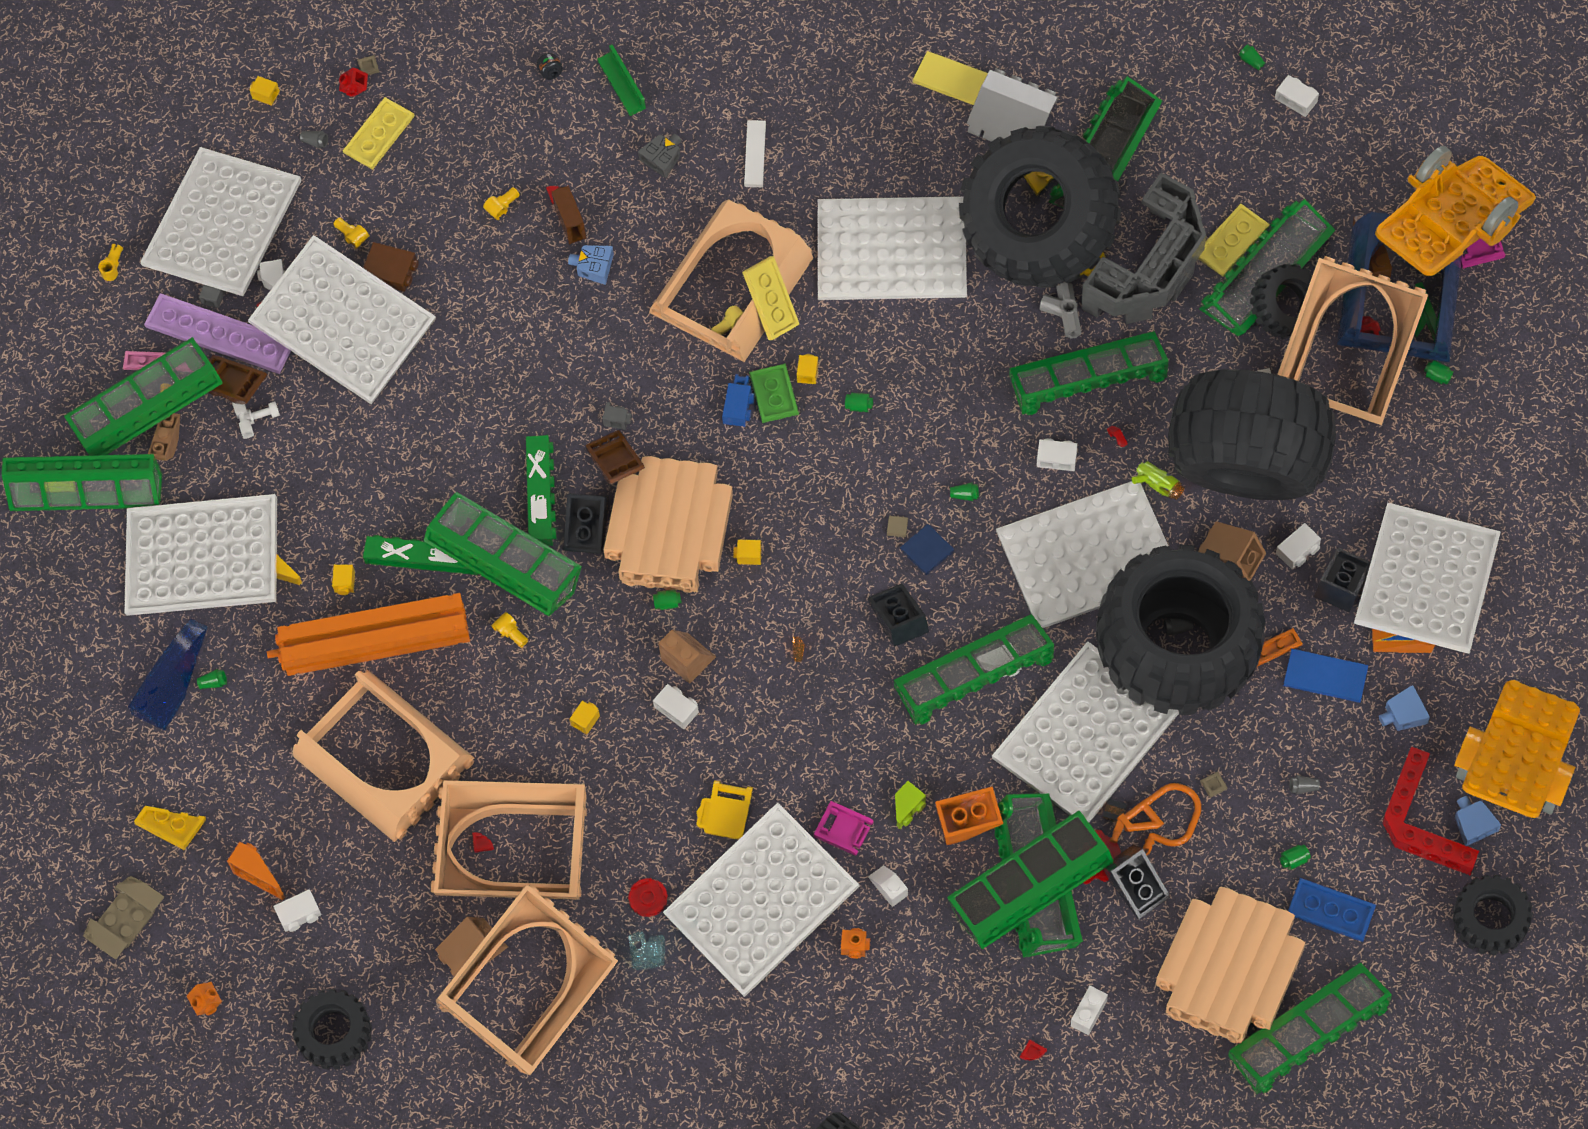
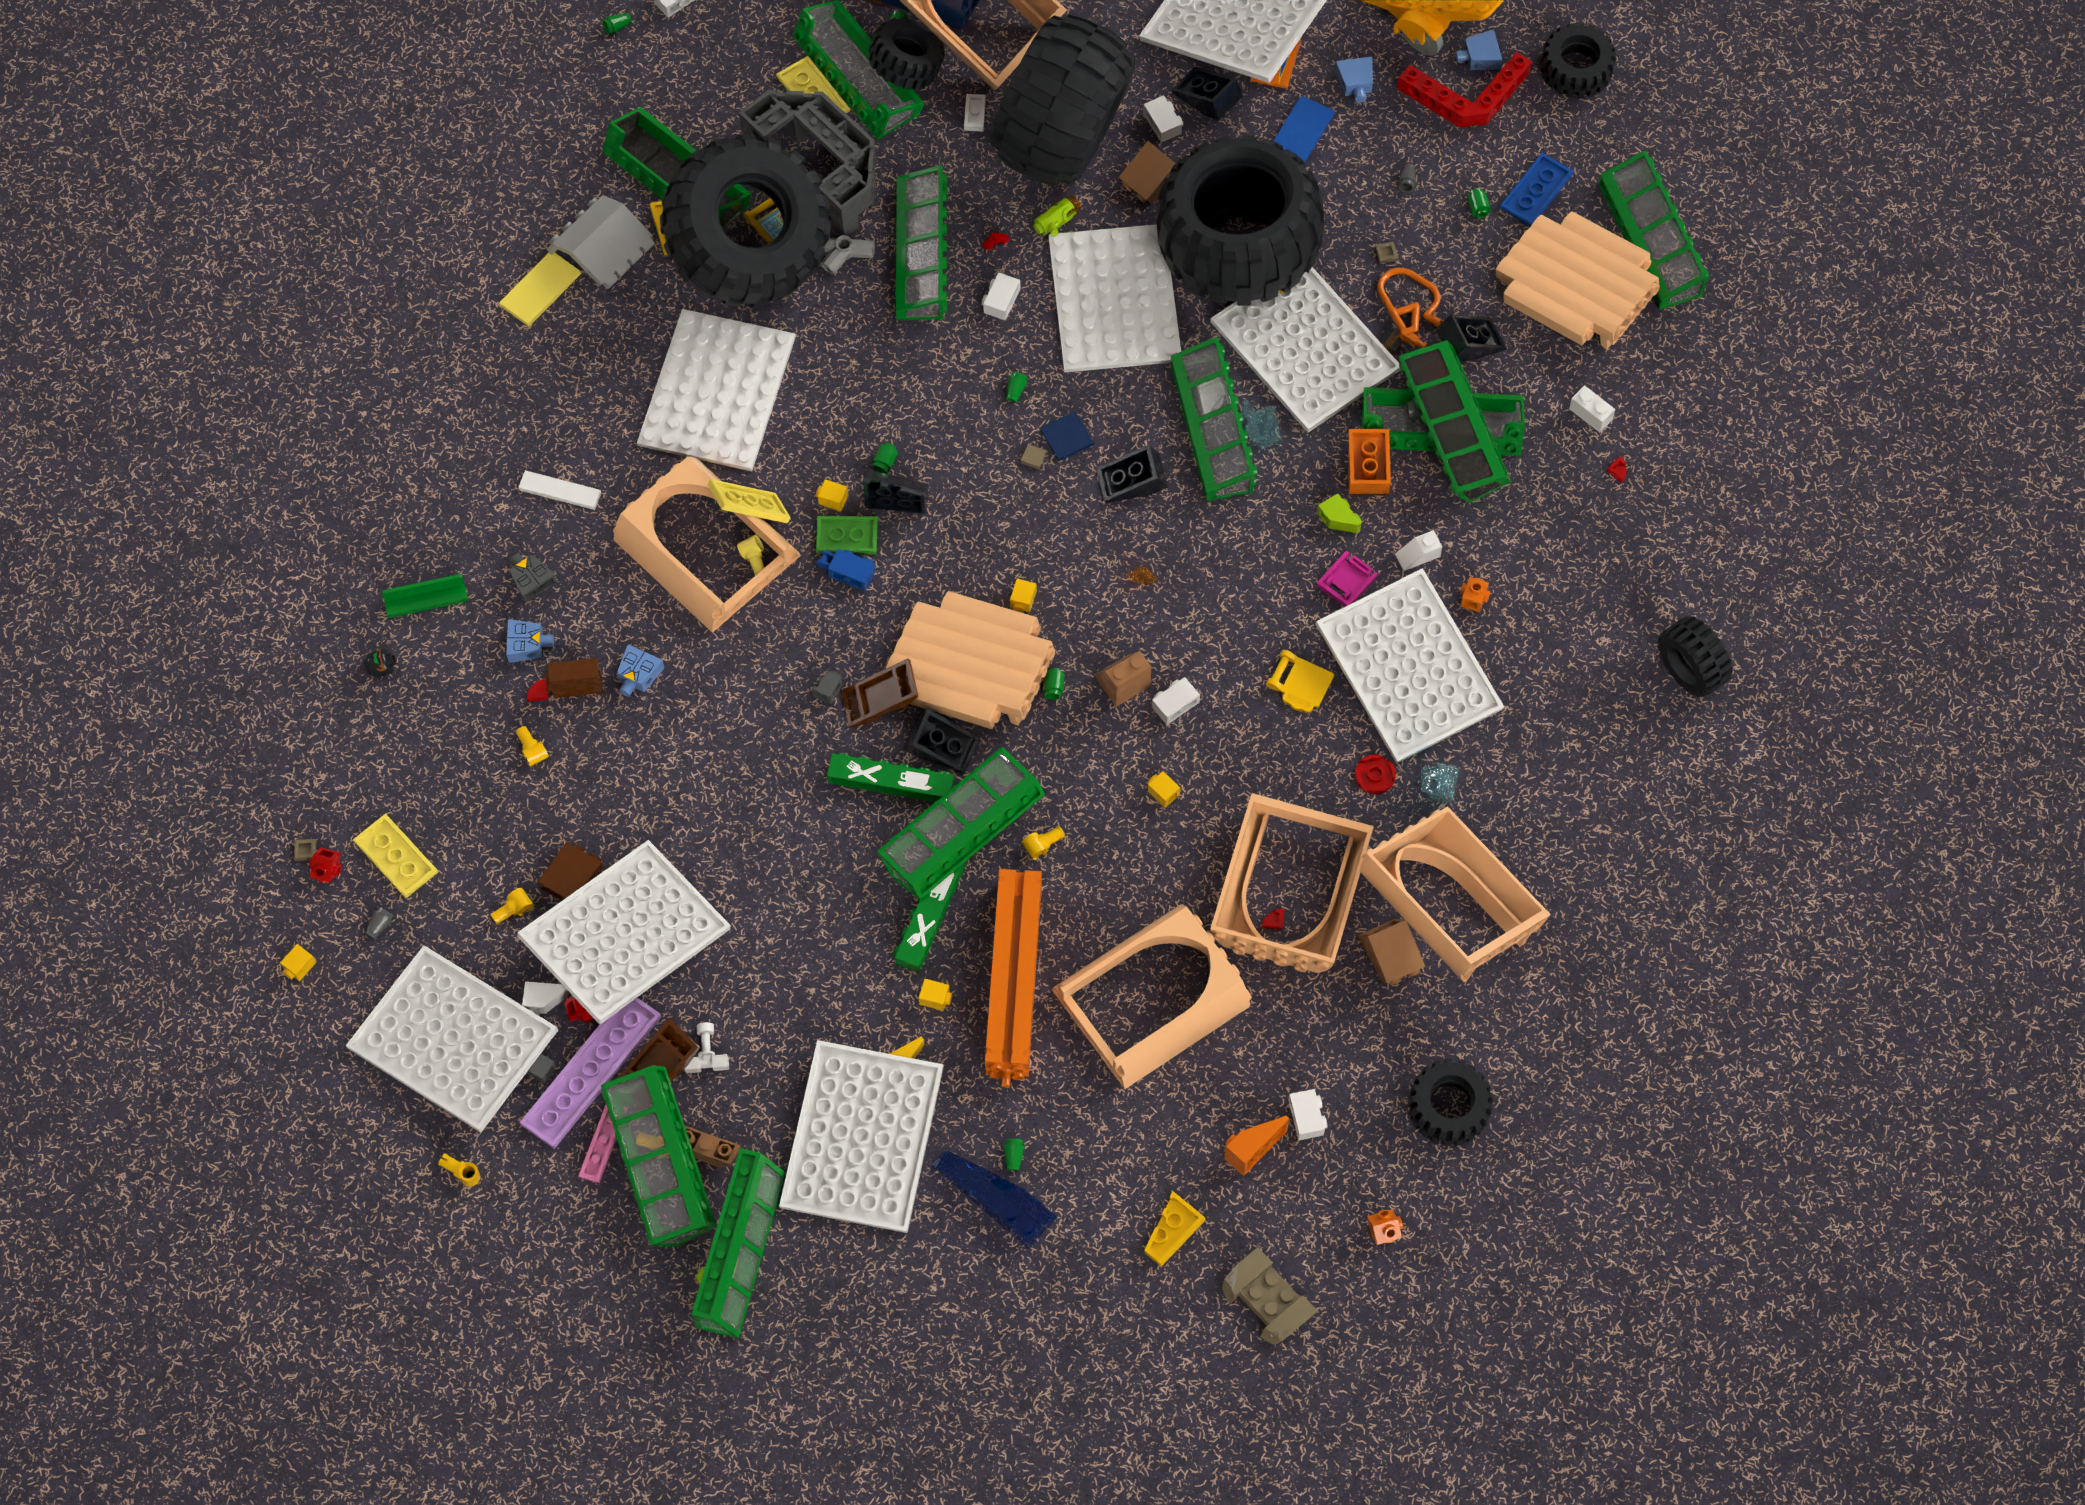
camera: 80 degrees left, 0 degrees up
(599, 169) = (526, 641): none -> medium blue torso
(820, 415) = (894, 493): none -> black wedge
(981, 710) = (1262, 425): none -> clear light blue bracket

